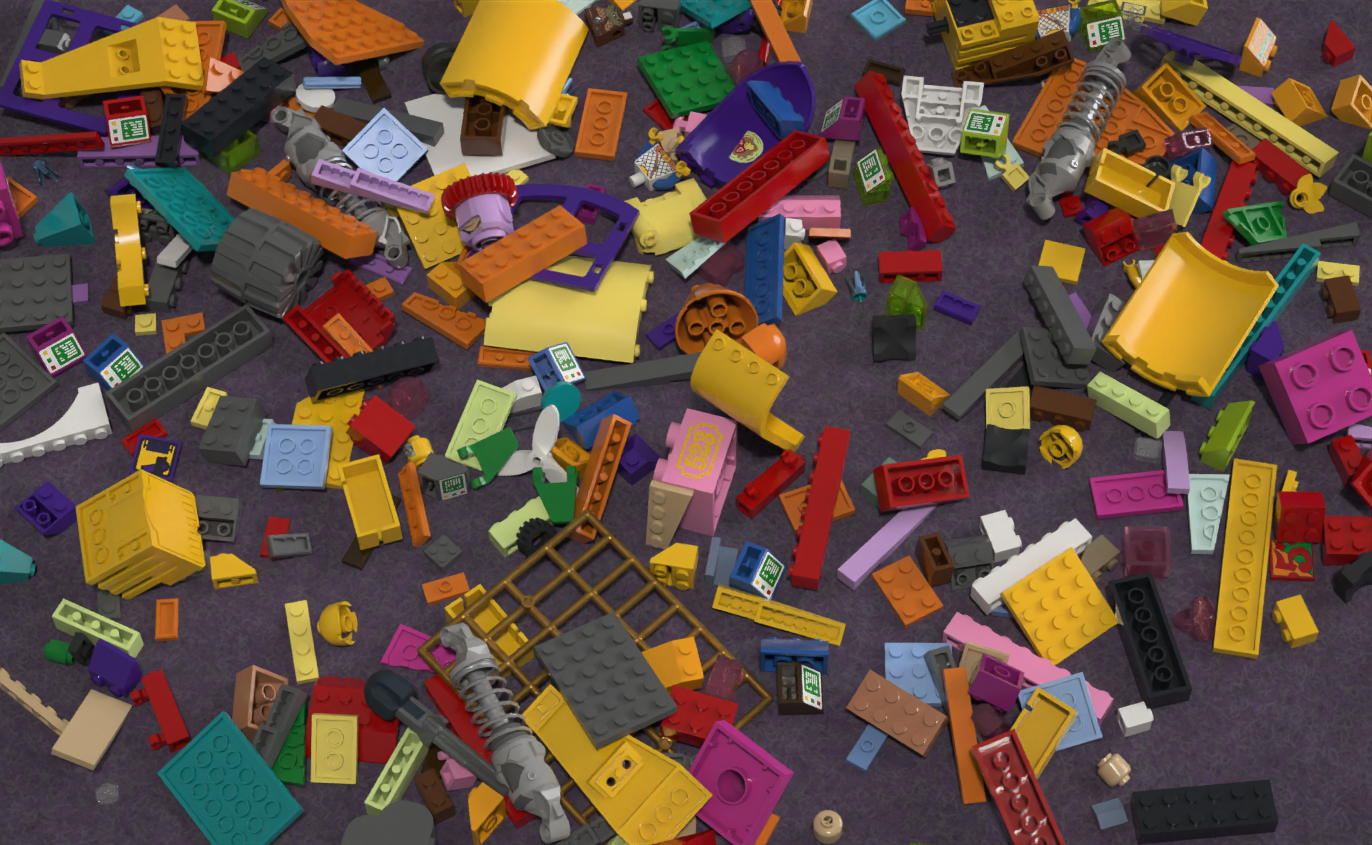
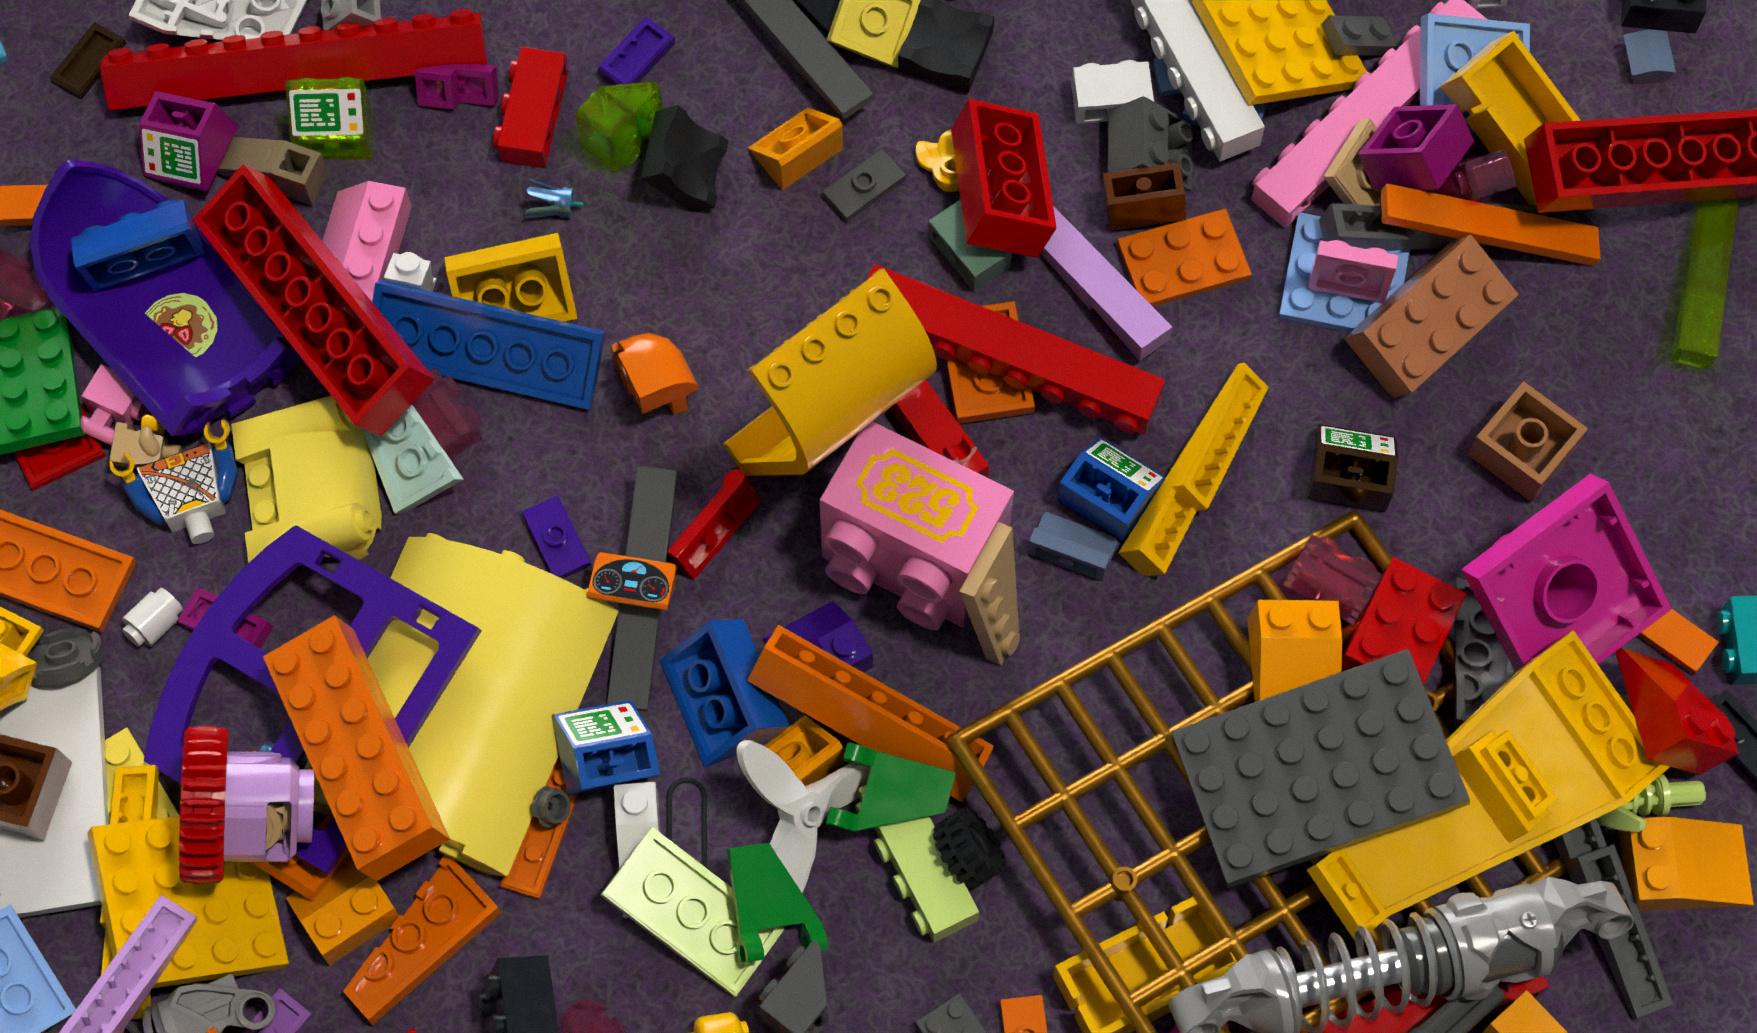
camera: 80 degrees left, 10 degrees up
(521, 359) = (550, 806): none -> dark grey plate
(565, 398) = (678, 753): teal tile -> none
(585, 172) = (151, 618): none -> white brick
(645, 361) = (632, 581): none -> slope
(676, 566) = (1080, 607): yellow slope -> none
(681, 393) = (715, 524): none -> red plate
(709, 309) = (574, 442): orange cone -> none
(811, 653) = (1285, 455): blue slope -> none
(827, 826) = (1624, 470): tan head -> none
(829, 233) = (434, 214): orange tile -> none
(831, 256) = (475, 226): bright pink brick -> none
(833, 774) = (1527, 441): none -> medium nougat brick
(867, 748) = (1471, 386): medium blue plate -> none
(909, 661) = (1352, 271): none -> bright pink plate
(1073, 653) = (1358, 35): none -> dark grey plate
(1113, 770) = (1572, 30): tan head -> none

